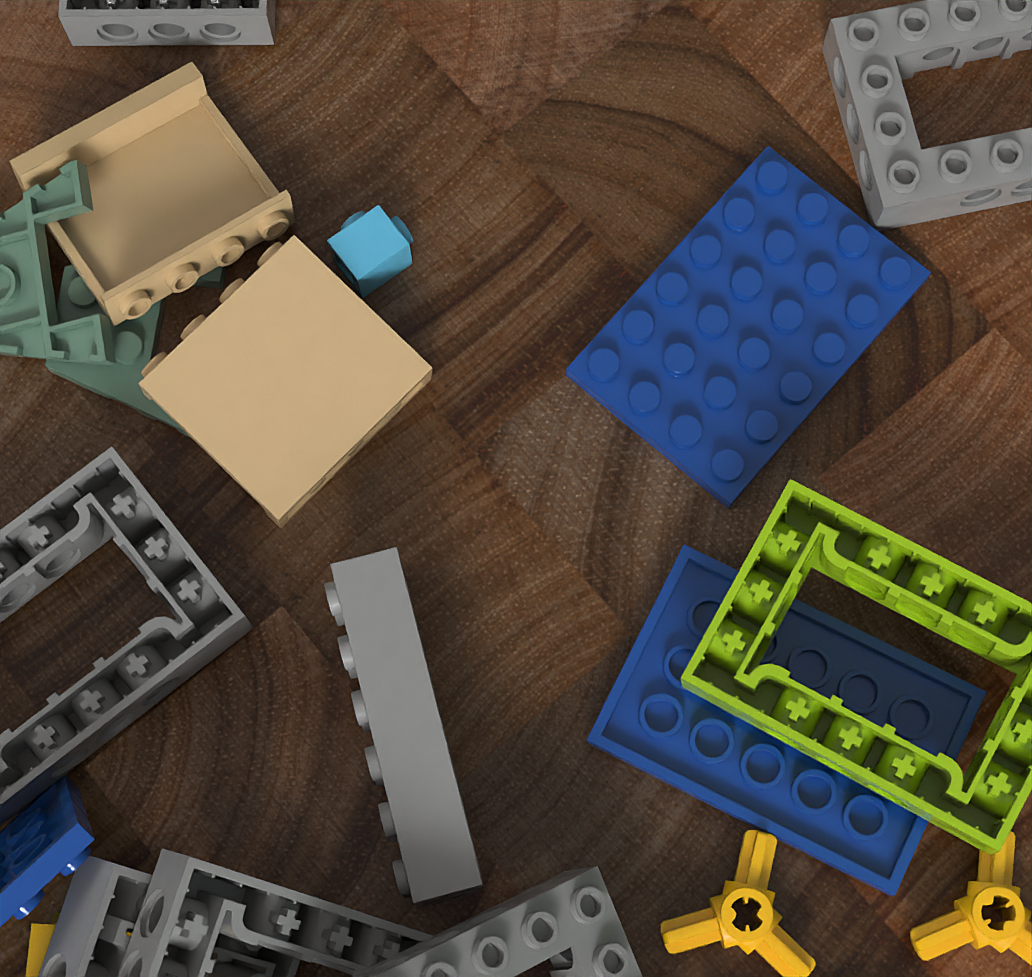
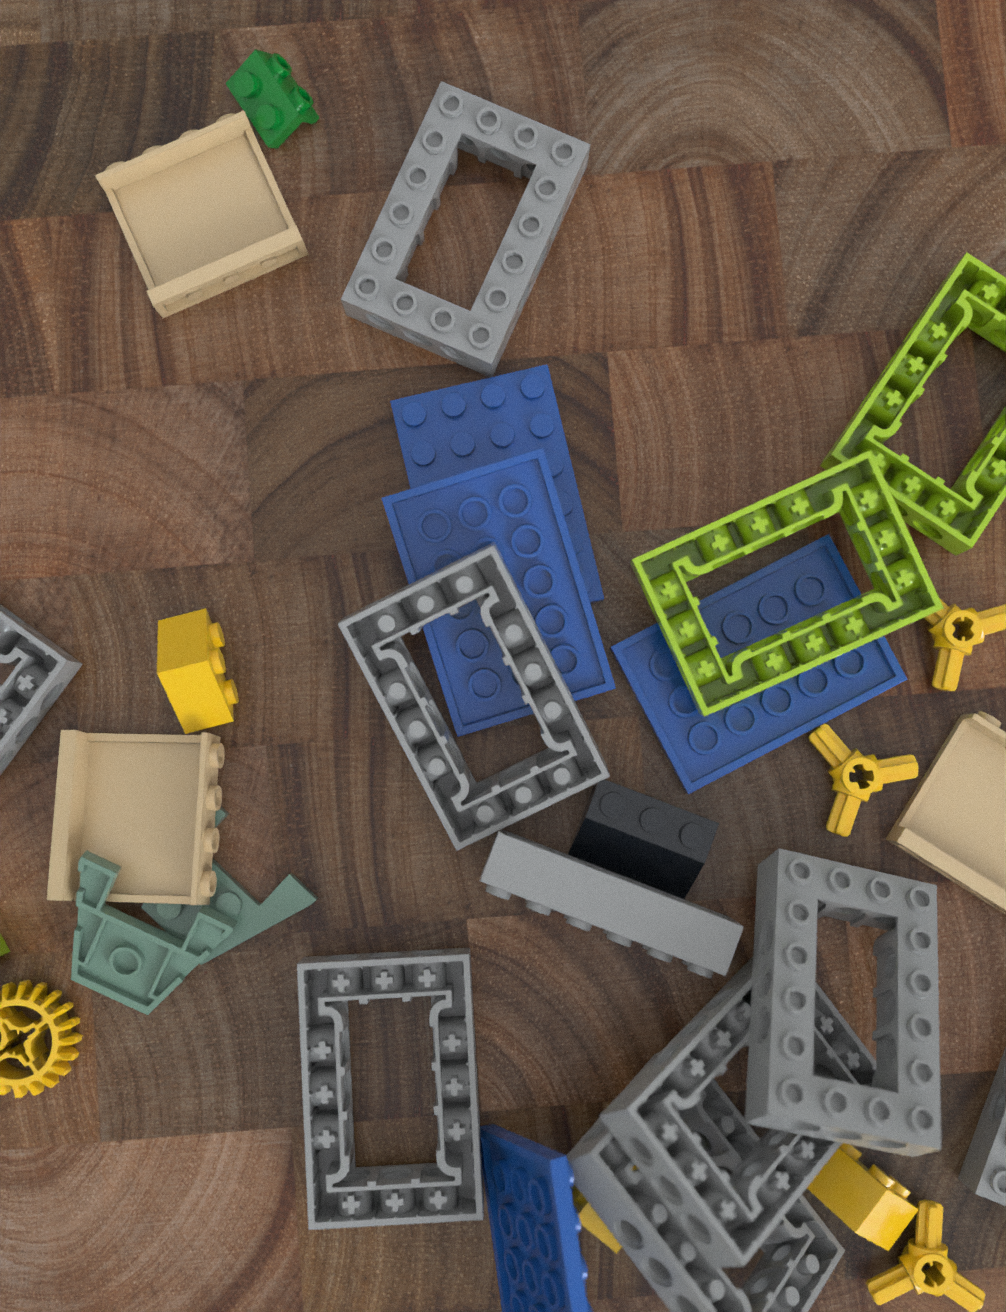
camera: 55 degrees left, 10 degrees up
(286, 378) = (325, 820): tan panel -> none
(340, 142) = (194, 670): none -> yellow brick
(371, 249) = (275, 701): medium azure brick -> none
(453, 391) = (463, 805): none -> light grey brick
(502, 724) = (643, 838): none -> black slope
(653, 384) = (522, 513): none -> blue plate

